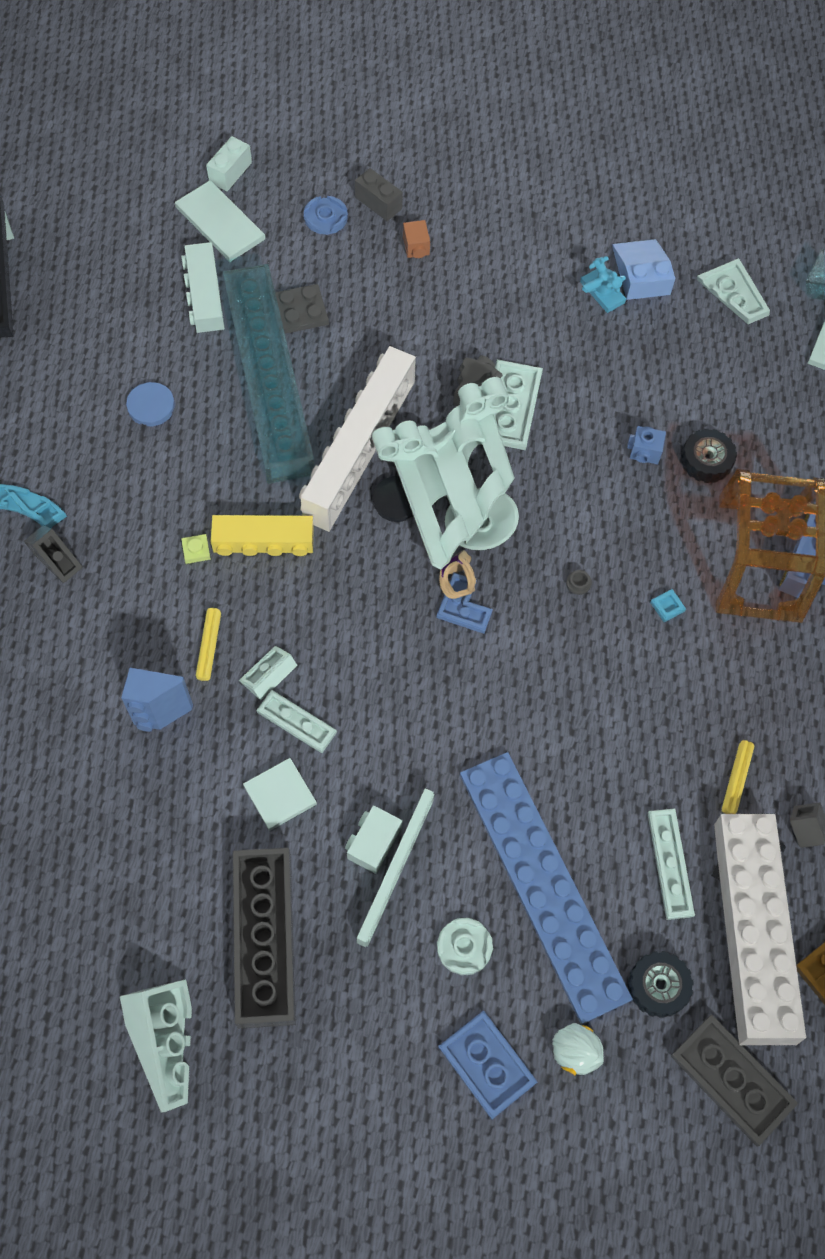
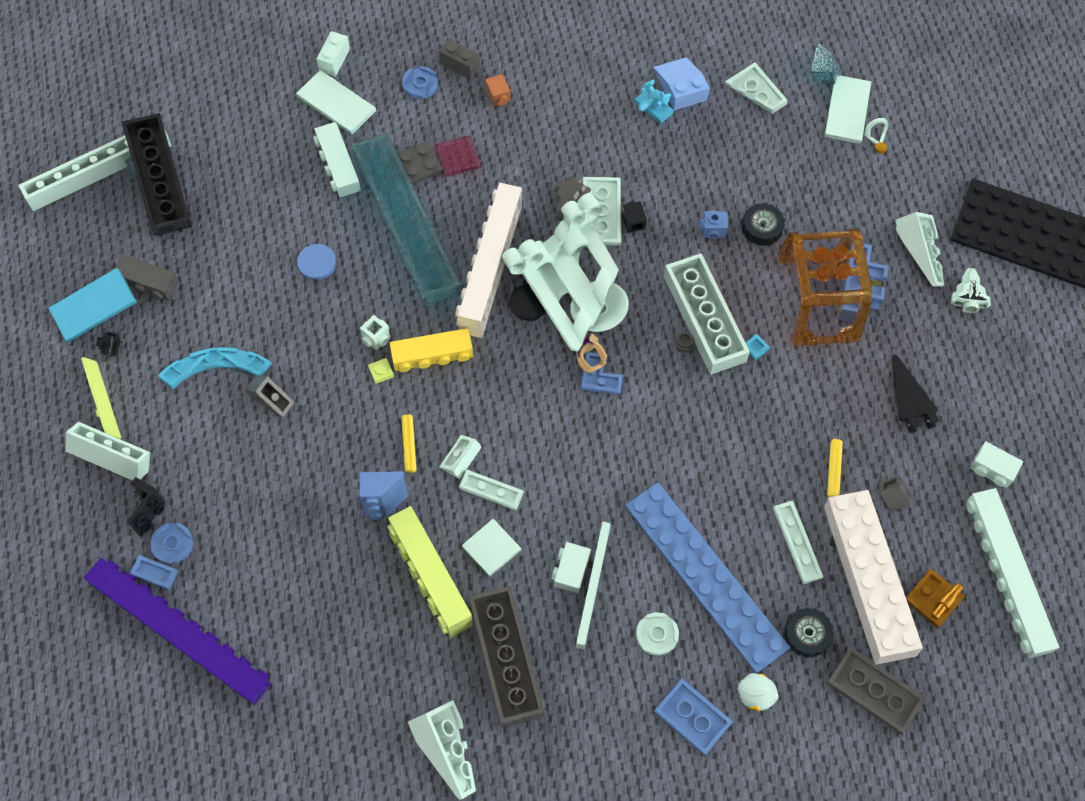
camera: 10 degrees left, 0 degrees up
(194, 813) = (431, 573): none -> yellowish green brick
(198, 501) = (375, 333): none -> light aqua brick
(350, 308) = (457, 156): none -> clear pink tile
(549, 418) = (634, 216): none -> black brick
(613, 553) = (706, 314): none -> light aqua brick

